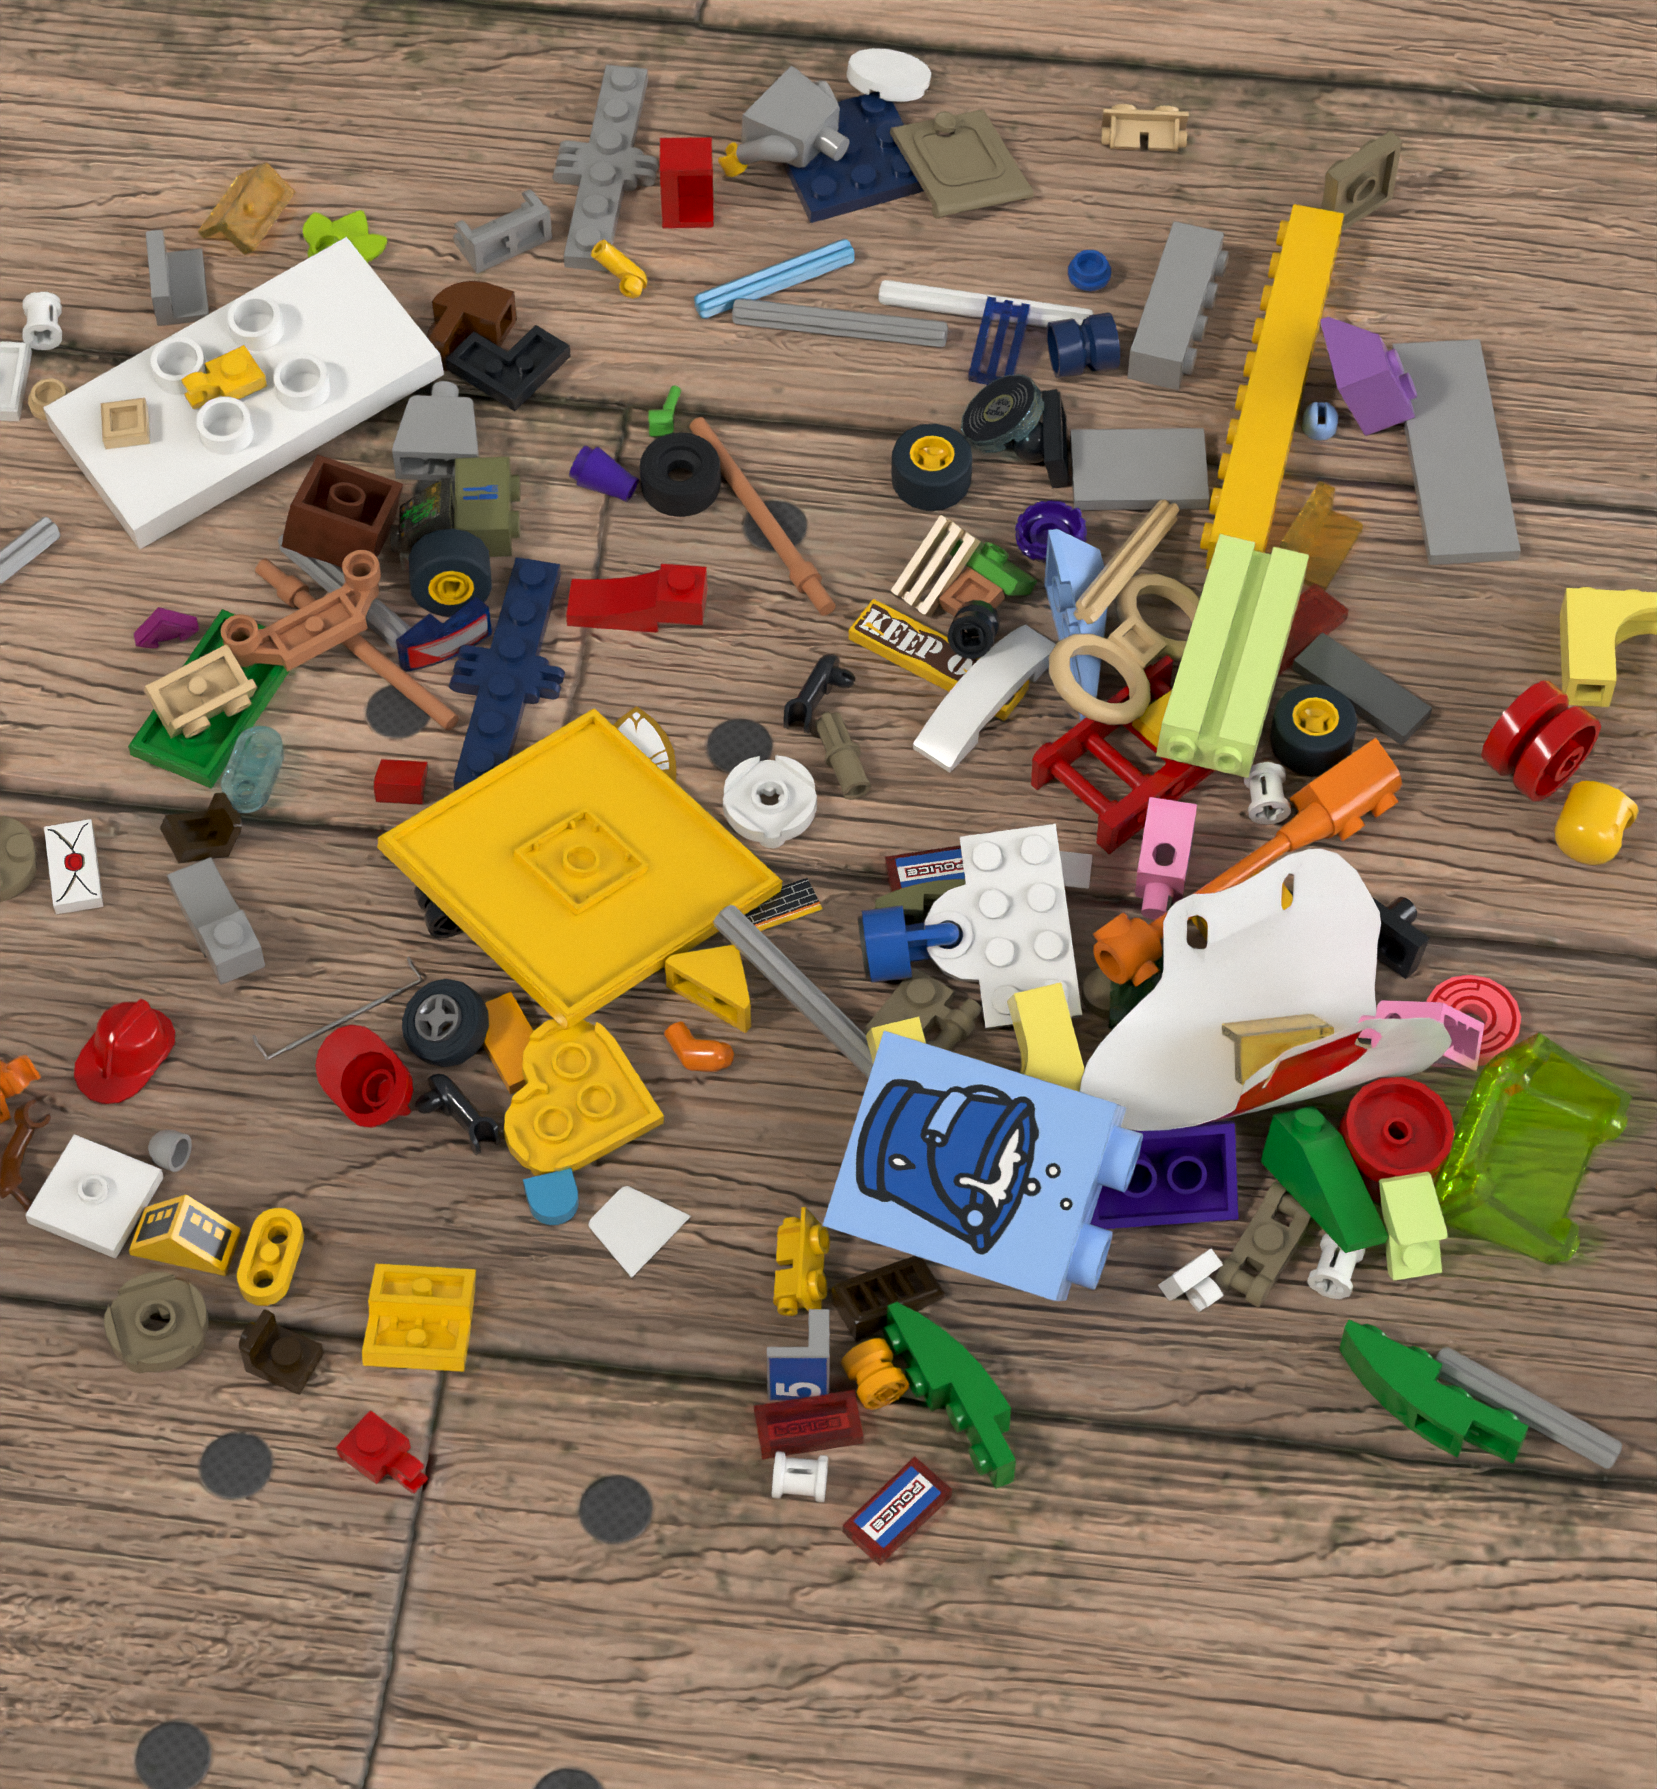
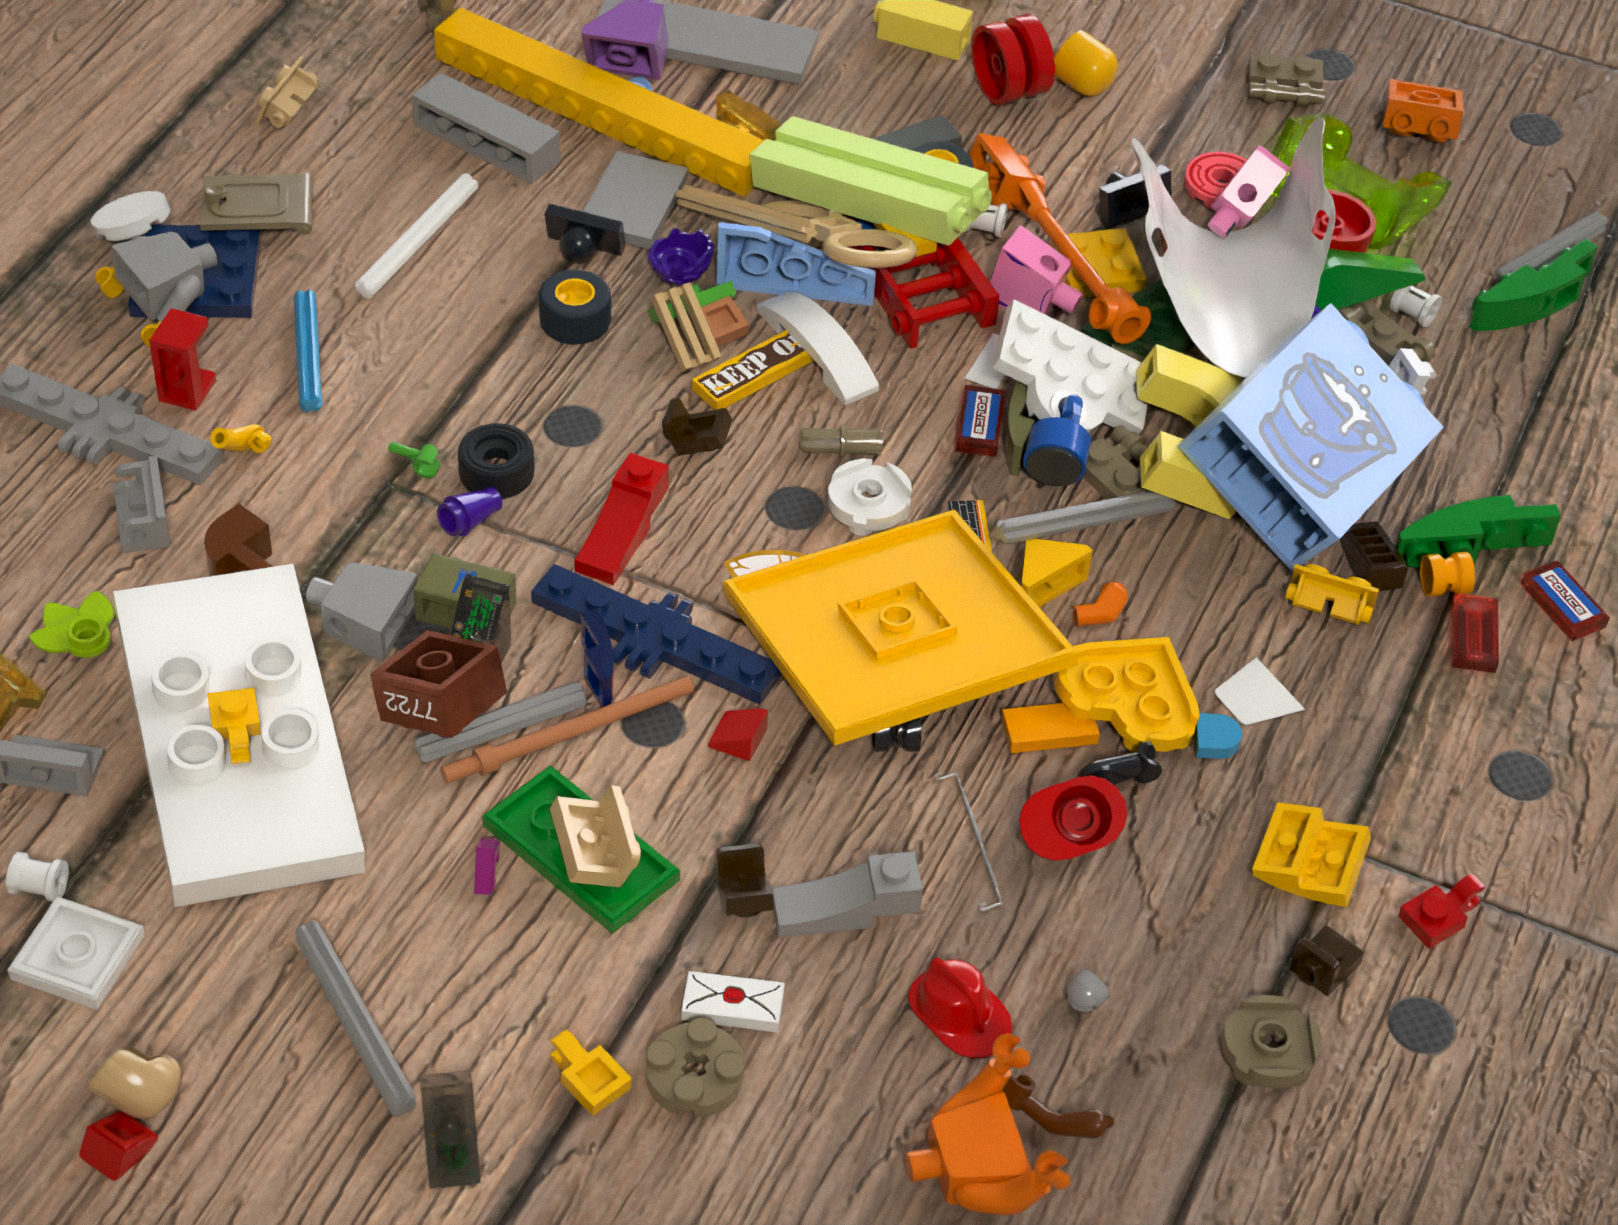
camera: 75 degrees left, 10 degrees down
(43, 394) = (142, 895): tan plate -> none
(94, 1196) = (1116, 1064): white plate -> none
(125, 423) = (238, 818): tan tile -> none
(186, 1236) = (1180, 1007): yellow slope -> none
(252, 773) = (686, 835): clear light blue plate -> none
(270, 1260) = (1226, 941): yellow plate -> none
(313, 627) = (553, 732): nougat plate -> none
(435, 1007) = (1036, 743): black wheel -> none
(449, 571) = (537, 630): black wheel -> none
(512, 374) = (314, 539): black plate -> none
(795, 618) = (695, 431): none -> dark brown bracket
(799, 1476) = (1522, 641): white bush -> none
(801, 1370) = (1437, 594): panel -> none
(802, 572) = (645, 416): nougat bar -> none
(819, 683) = (761, 430): black piece -> none
(840, 322) = (380, 325): light grey axle -> none
(978, 620) = (766, 319): black wheel -> none
(1002, 412) = (546, 244): tile -> none
(1006, 310) = (469, 231): clear blue tile -> none
(1089, 270) = (416, 166): blue plate -> none
(1089, 344) = (500, 185): dark blue wheel -> none
(1264, 1040) = (1232, 259): clear yellow panel -> none
(1412, 1225) = (1409, 238): yellowish green slope -> none

